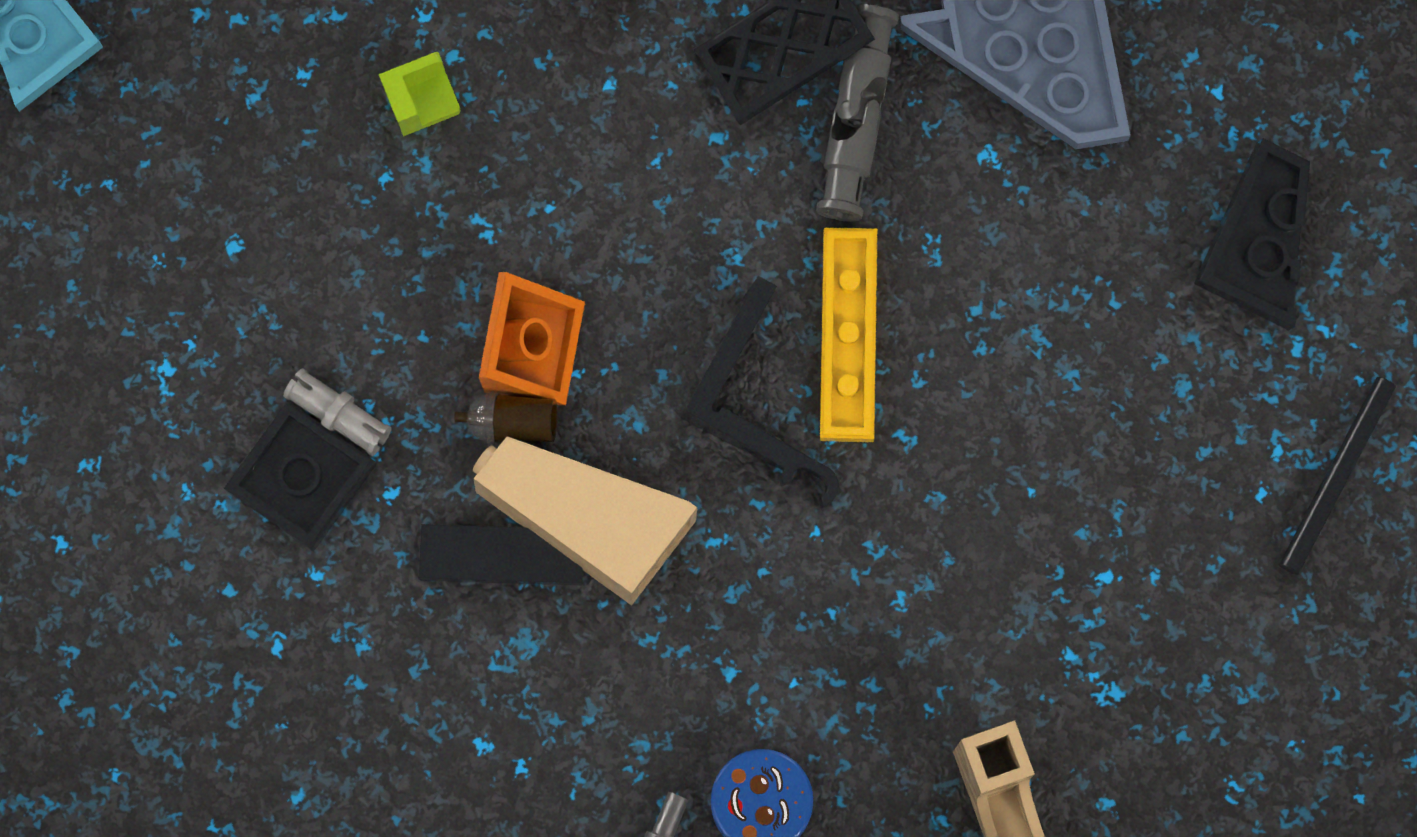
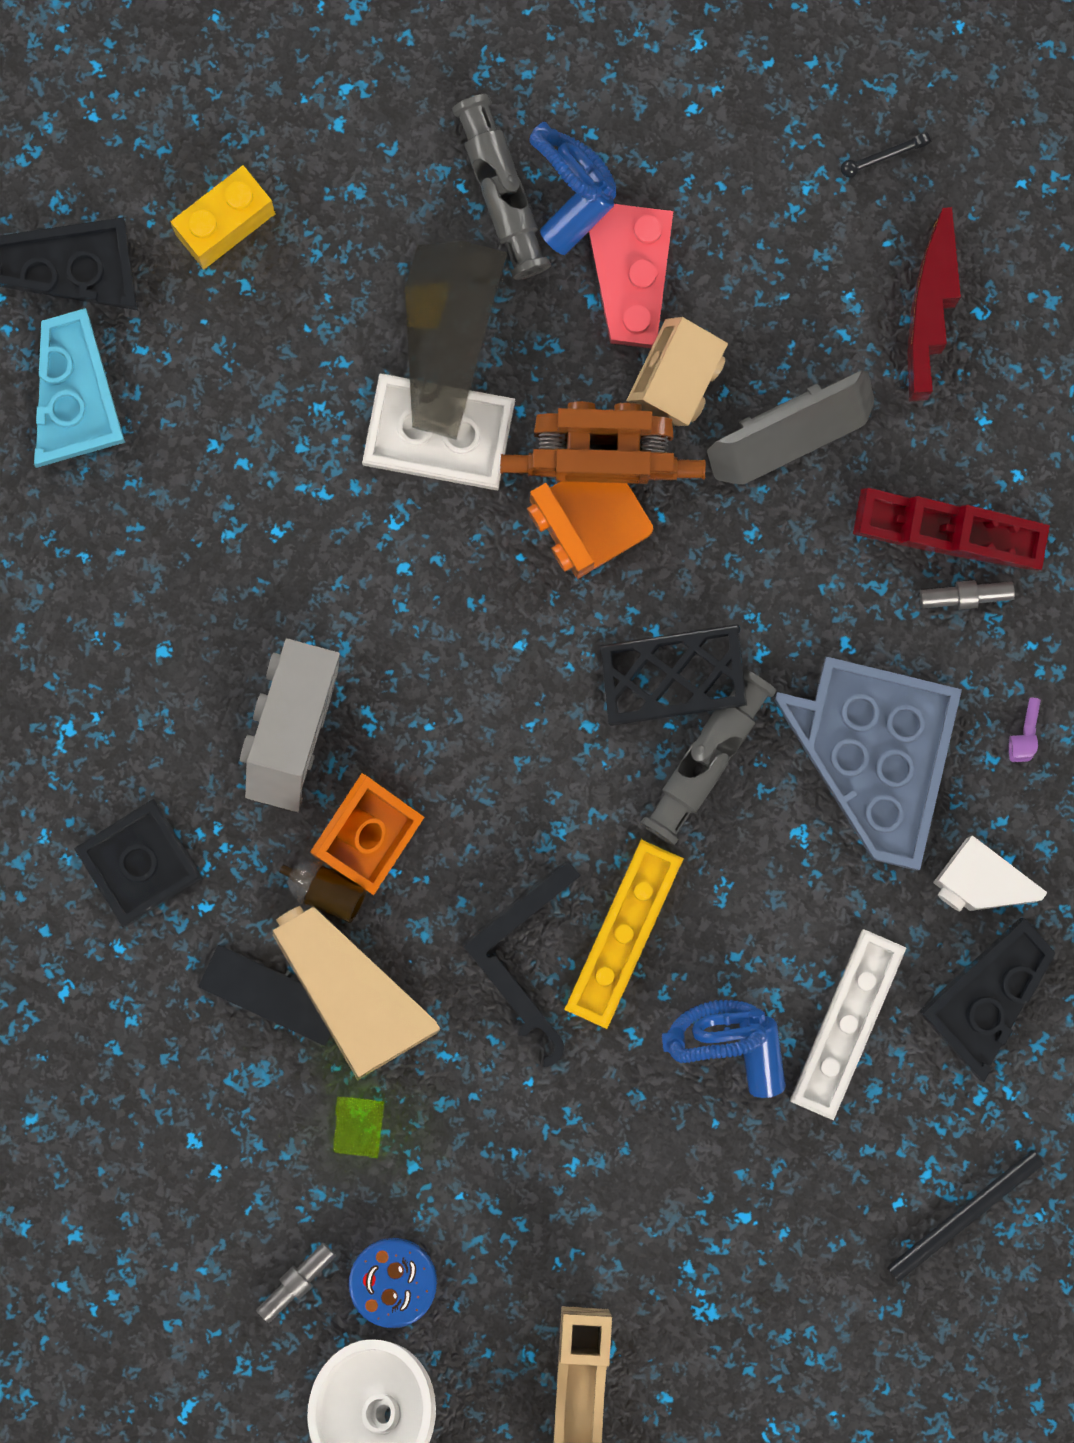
camera: 15 degrees right, 5 degrees up
(337, 411) = (189, 824): light grey pin -> none
(399, 261) = (289, 723): none -> light grey wedge
(420, 93) = (363, 591): lime panel -> none
(654, 651) = (359, 1126): none -> clear neon green panel
(1032, 374) = (758, 1042): none -> blue piece
(1125, 329) = (847, 1024): none -> white tile
(1203, 118) = (984, 880): none -> white slope

